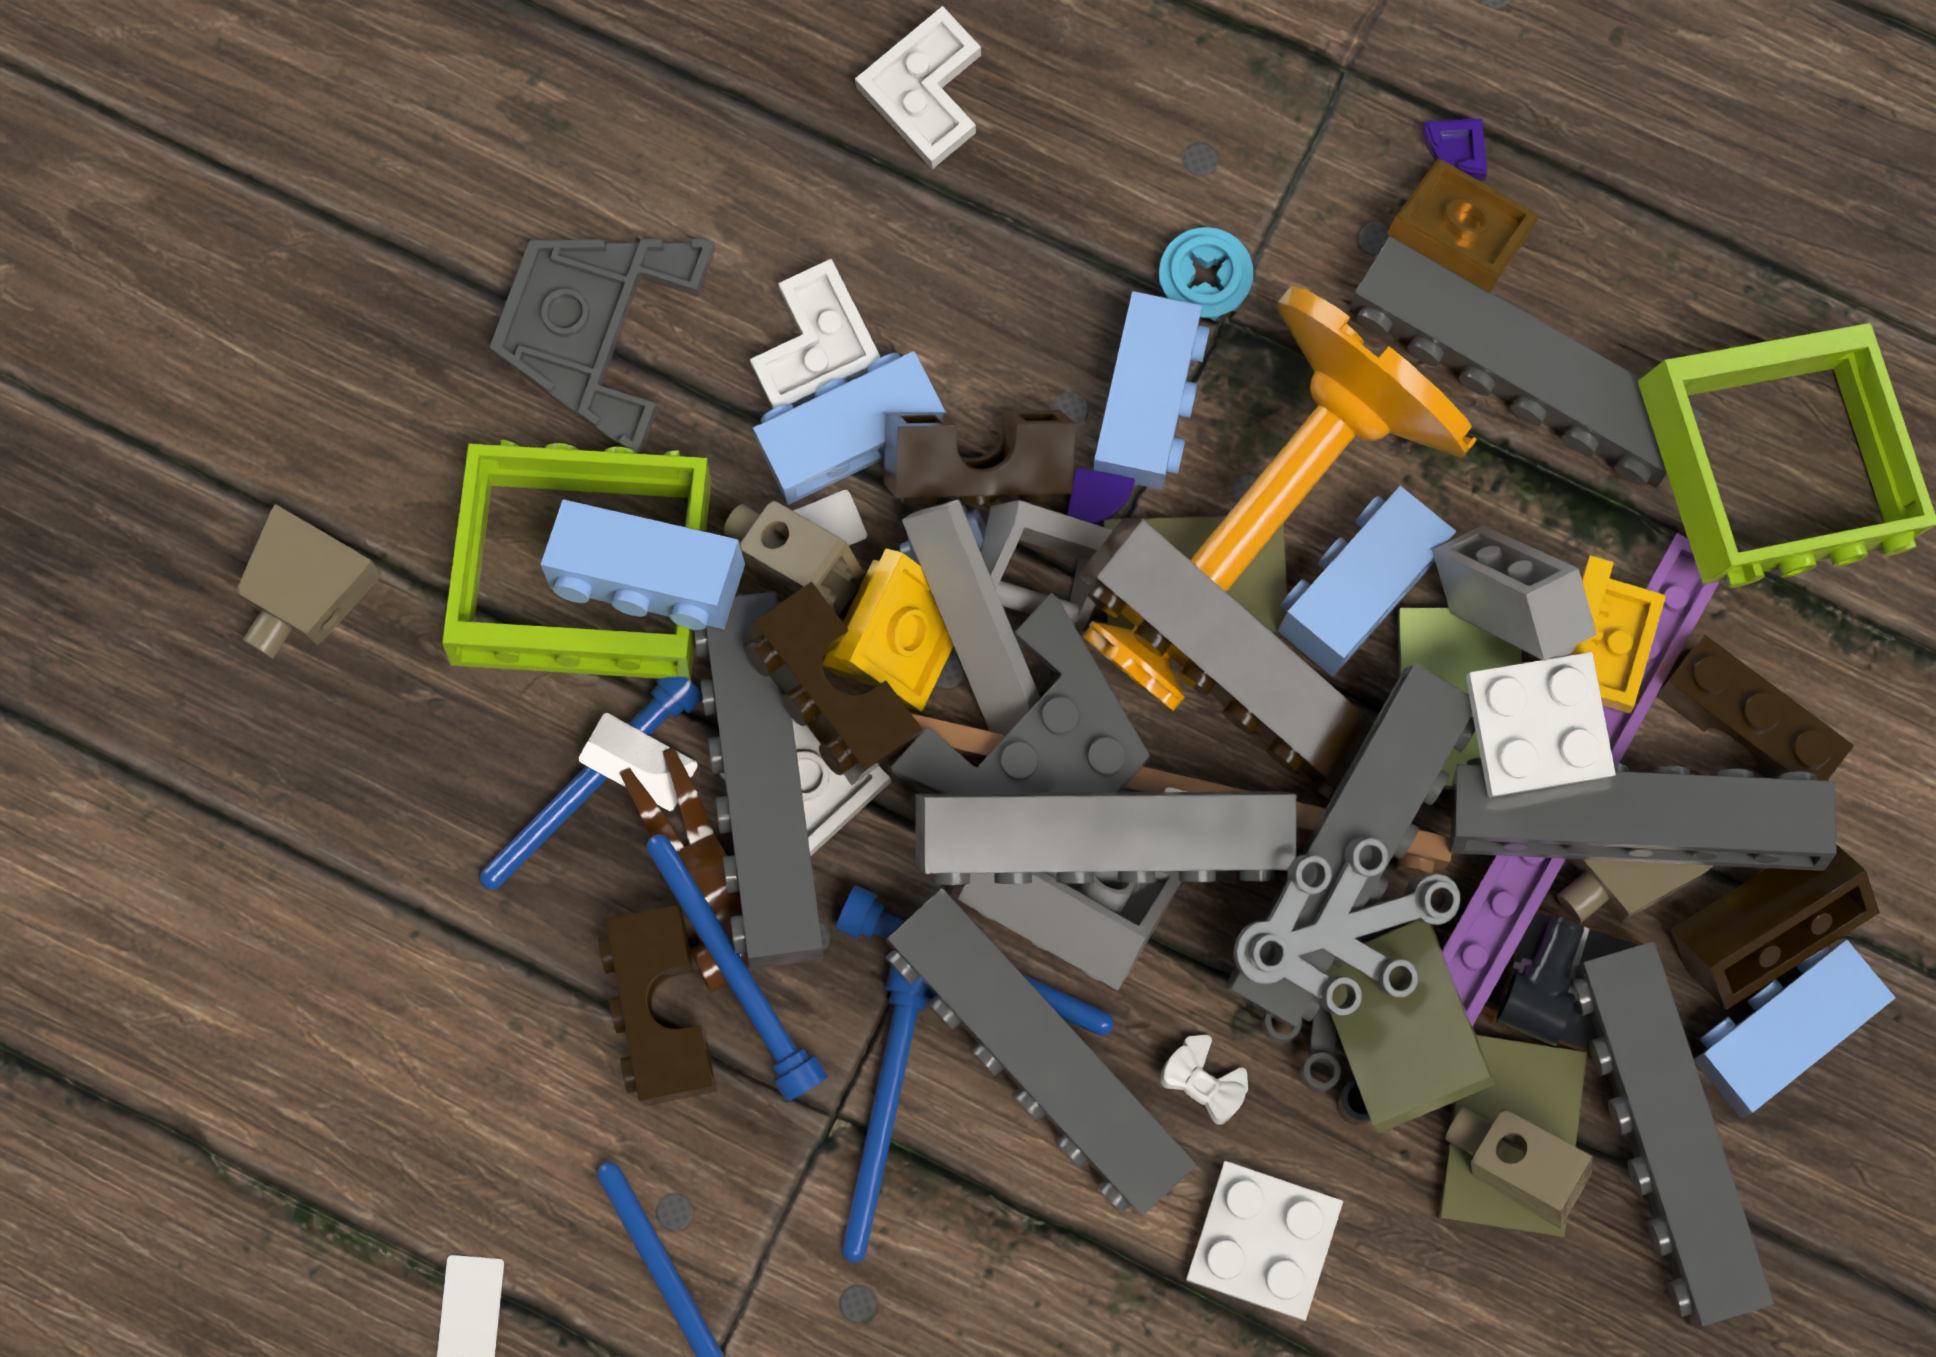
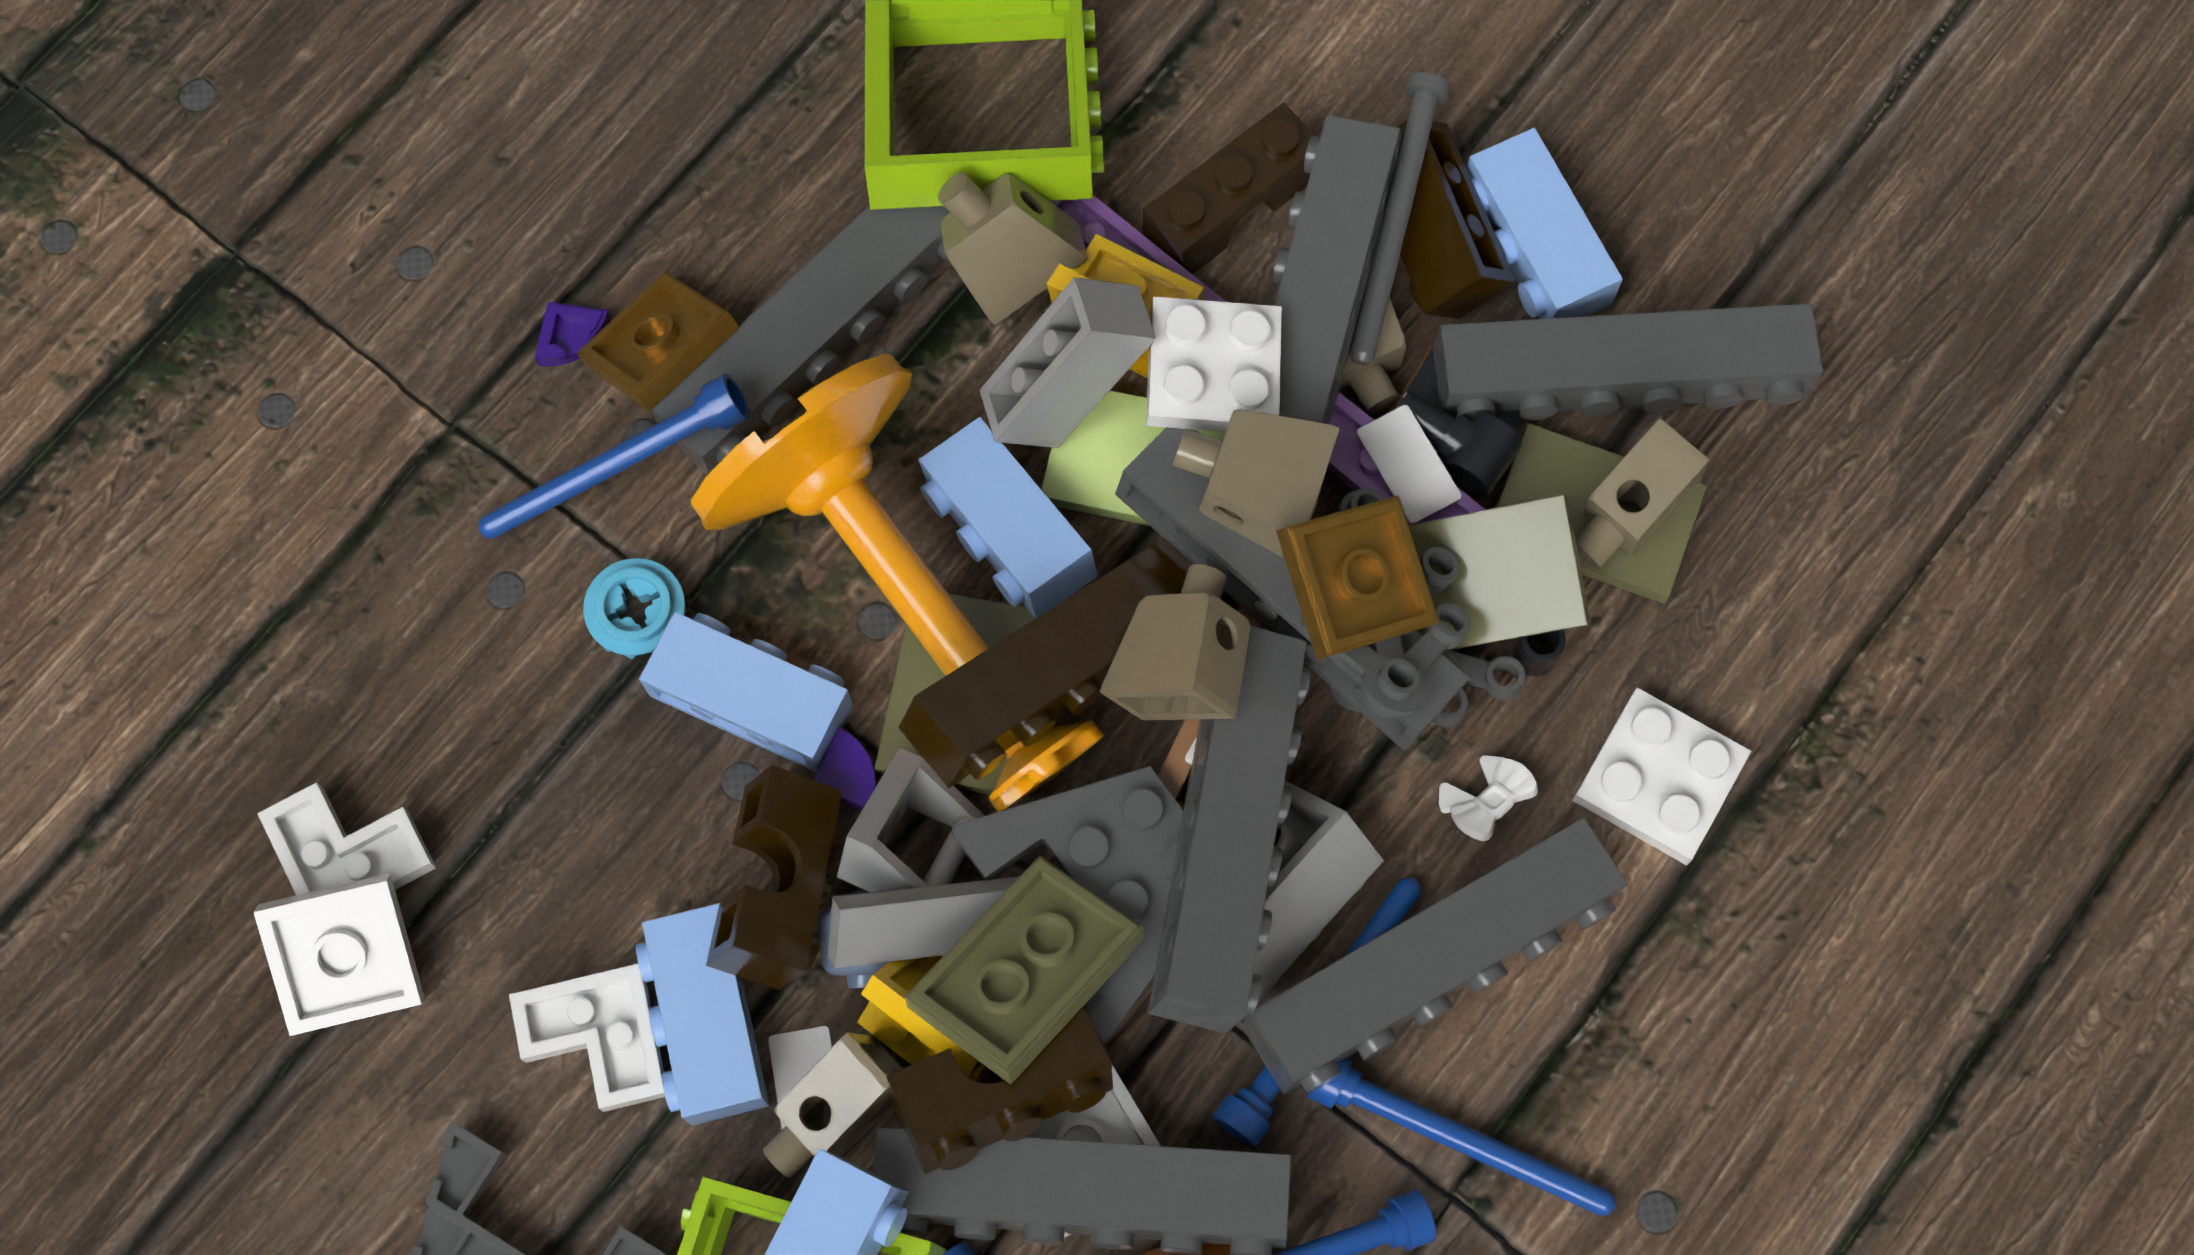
camera: 80 degrees left, 5 degrees down
(834, 109) = (339, 954): none -> white plate
(935, 681) = (1025, 969): none -> olive tile
(1252, 754) = (1182, 654): none -> dark tan torso
(1353, 893) = (1357, 577): none -> pearl gold tile
(1401, 291) = (717, 406): none -> blue piece
(1436, 787) = (1260, 472): none -> dark tan torso
(1505, 938) = (1409, 463): none -> white sticker
(1635, 514) = (1006, 241): none -> dark tan torso
(1757, 874) = (1427, 92): none -> dark grey bar

